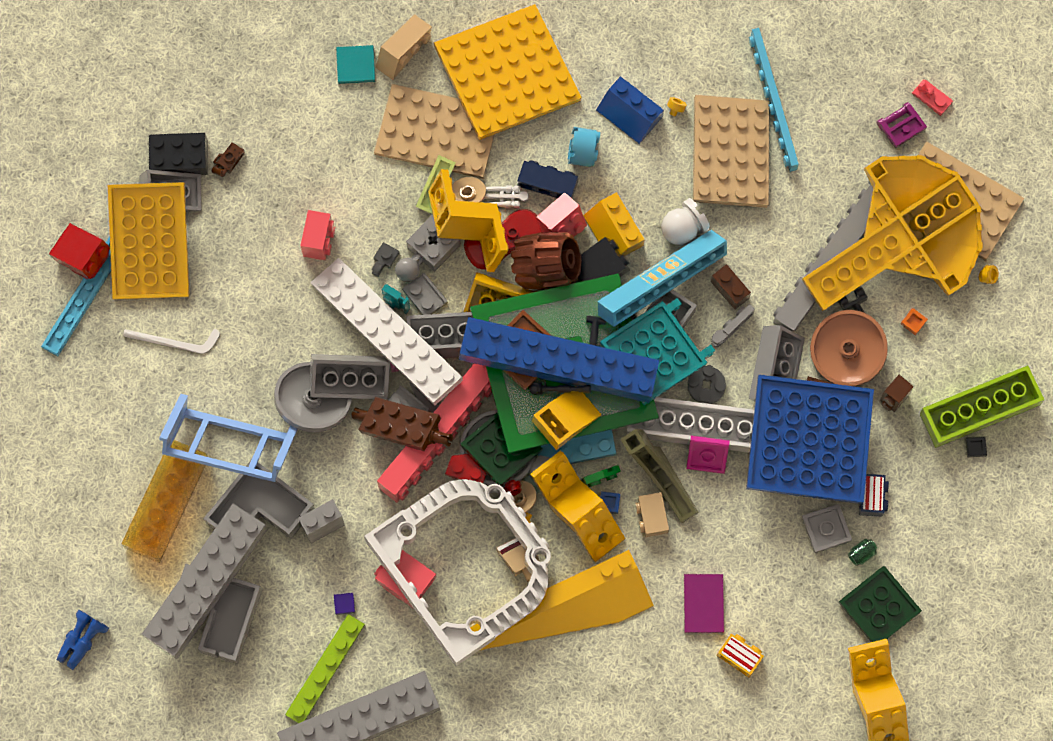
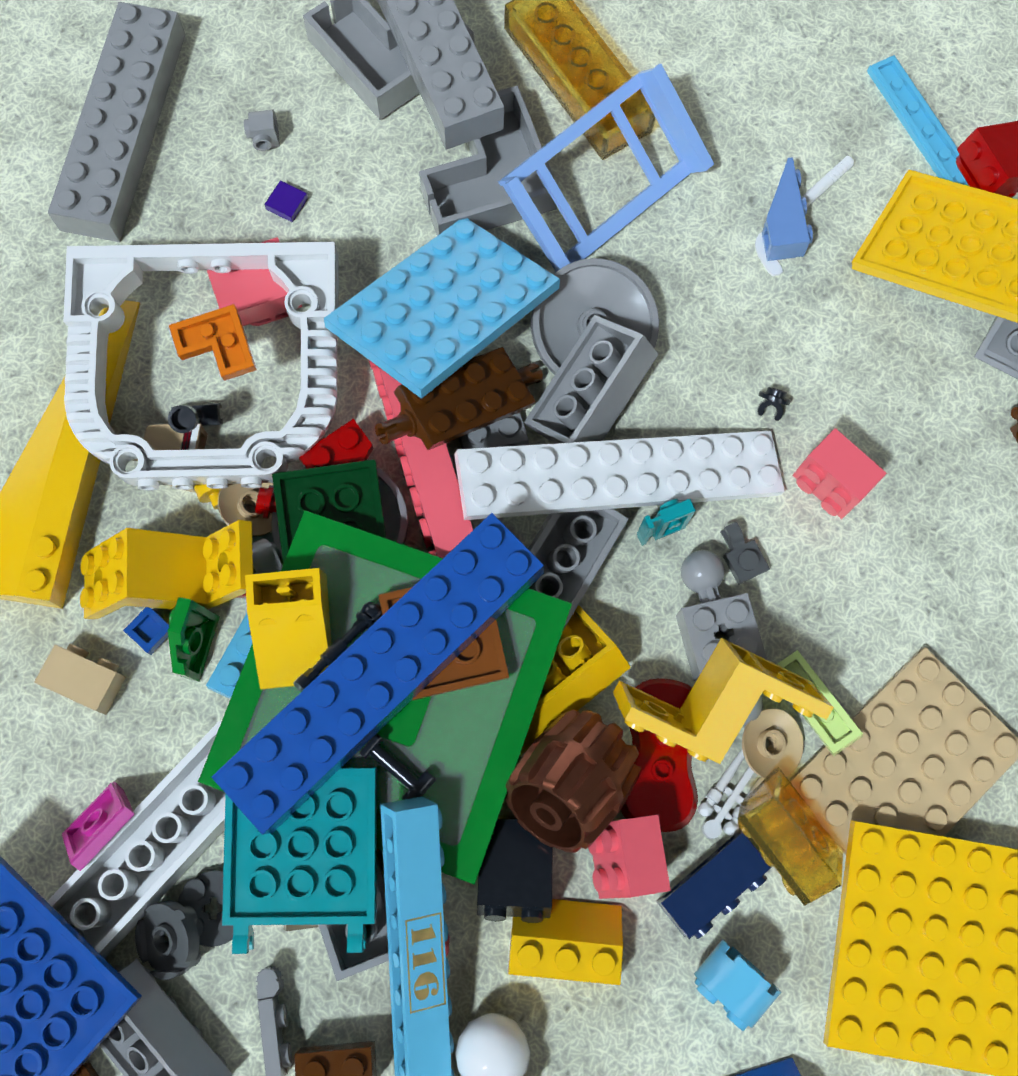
camera: 120 degrees right, 0 degrees up
(189, 341) = (785, 228): none -> medium blue slope
(292, 291) = (775, 398): none -> black plate
(311, 644) = (263, 129): none -> light grey plate
(321, 521) = (405, 217): light grey brick -> none
(325, 669) = (221, 130): lime plate -> none
(360, 463) = (441, 305): none -> medium azure plate
(424, 295) = (647, 576): light grey plate -> none
(450, 551) = (216, 332): none -> orange plate
(502, 543) = (186, 417): none -> black bar
(505, 159) = (791, 838): none -> clear yellow slope
(659, 469) = (132, 733): olive arch -> none
(722, 387) = (182, 950): none -> dark grey plate

